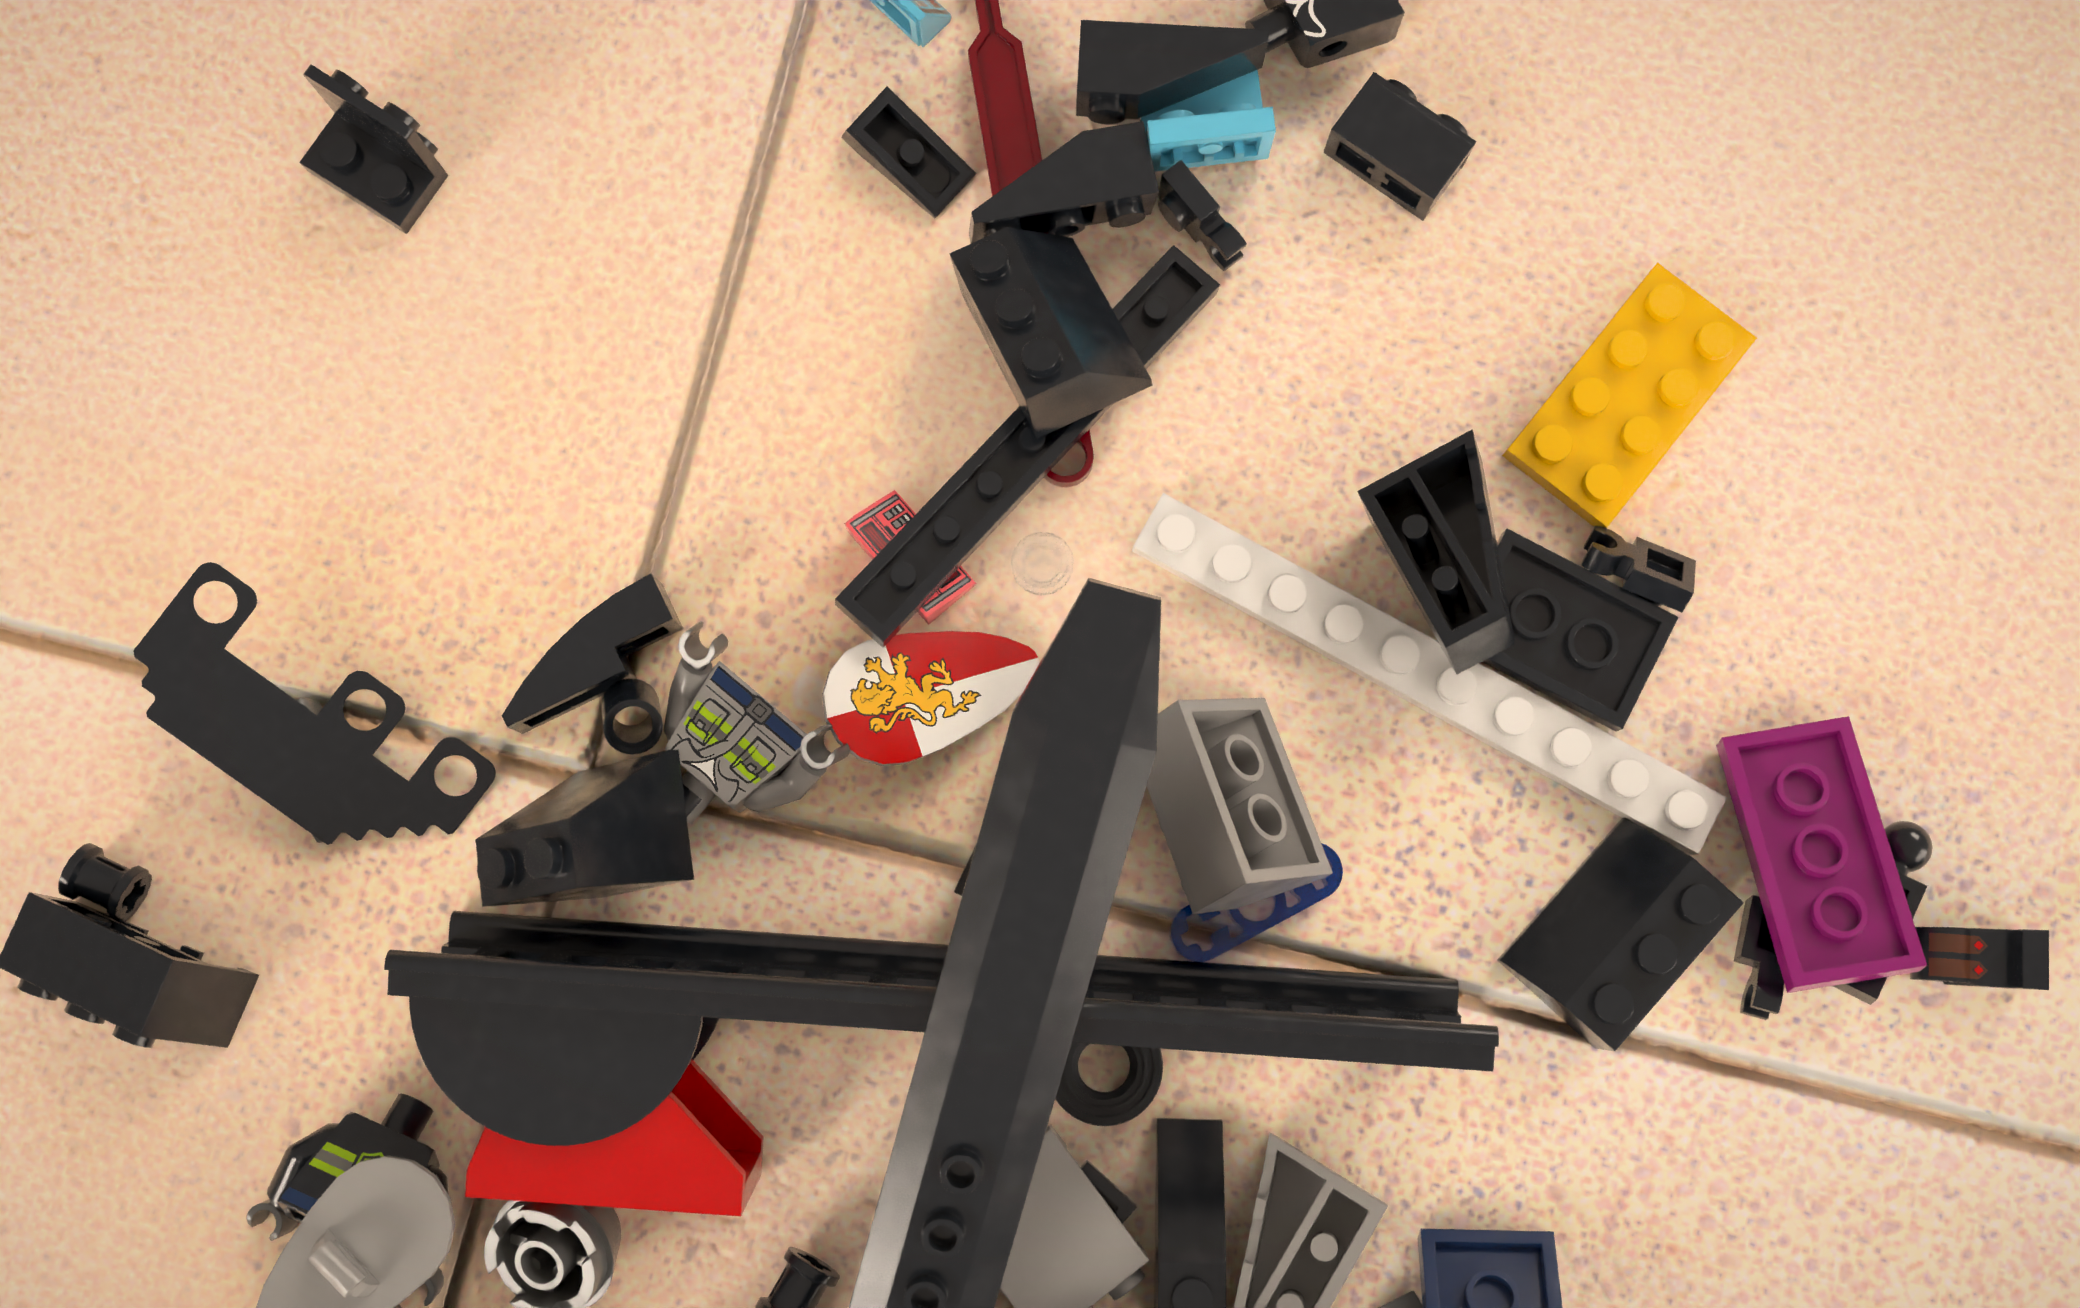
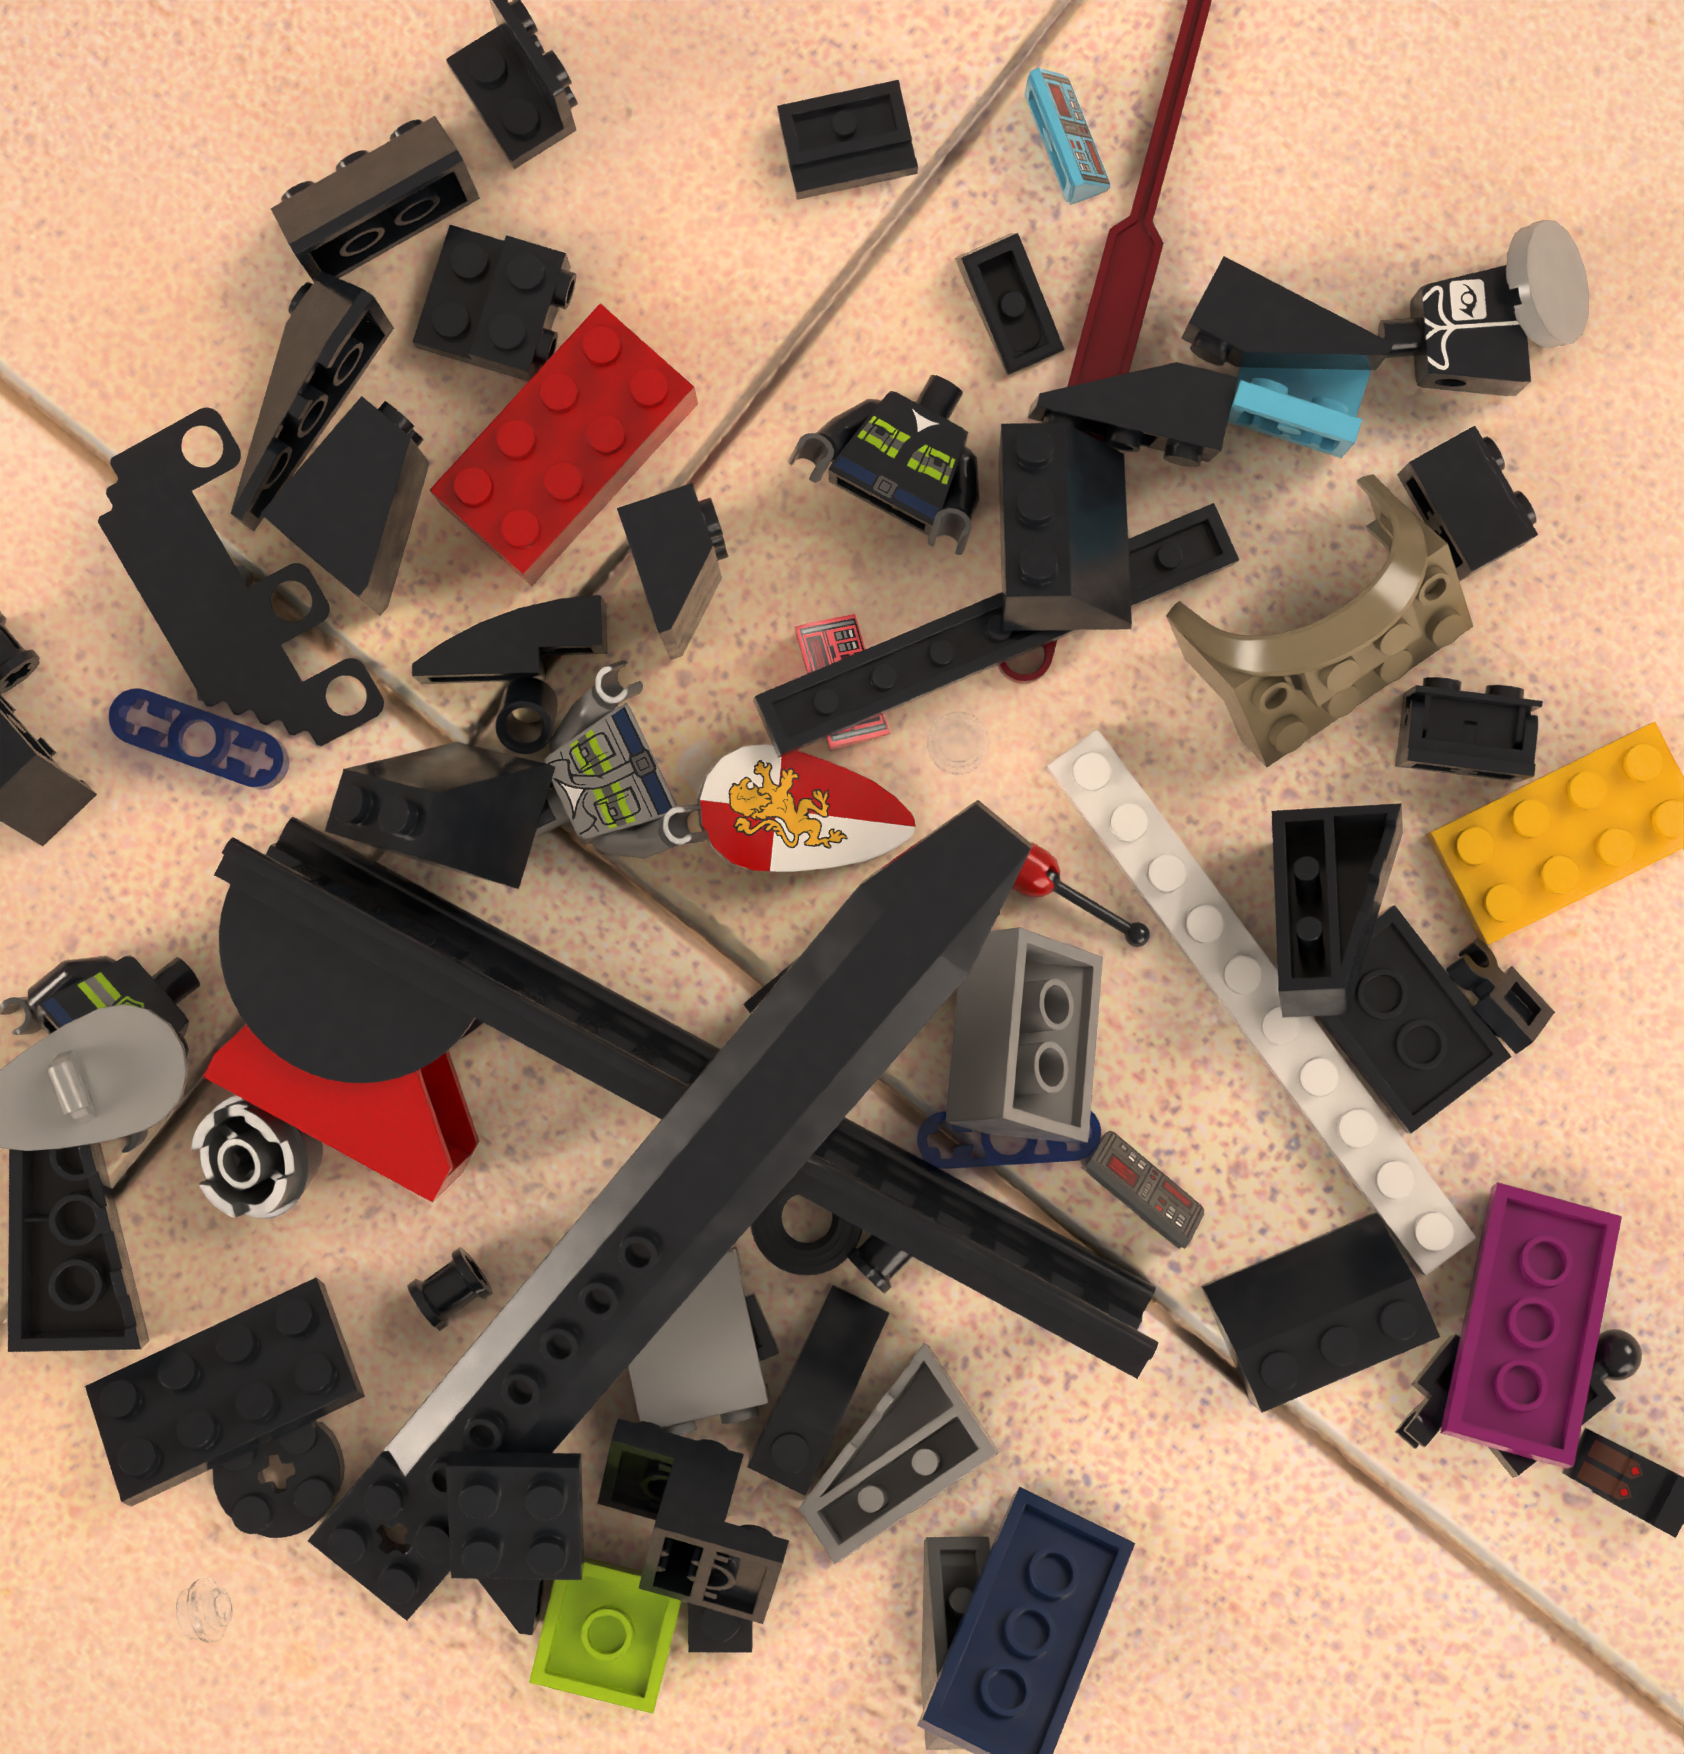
camera: 25 degrees right, 5 degrees up
(287, 865) = (162, 708): none -> clear blue beam
(289, 313) = (375, 200): none -> black slope
(297, 477) = (320, 359): none -> black wedge
(383, 588) = (356, 500): none -> black slope
(440, 358) = (495, 302): none -> black plate
(558, 454) = (565, 444): none -> red brick
(696, 74) = (847, 139): none -> black plate
(705, 503) = (677, 559): none -> black slope
(874, 331) = (902, 459): none -> torso
(1178, 650) = (1042, 876): none -> hinge
(1190, 1073) = (878, 1261): none -> black bush
(1191, 207) = (1245, 473): black plate -> none
(1334, 353) = (1306, 678): none -> dark tan piece
(1404, 894) = (1144, 1189): none -> slope
(1497, 344) = (1468, 731): none -> black hinge

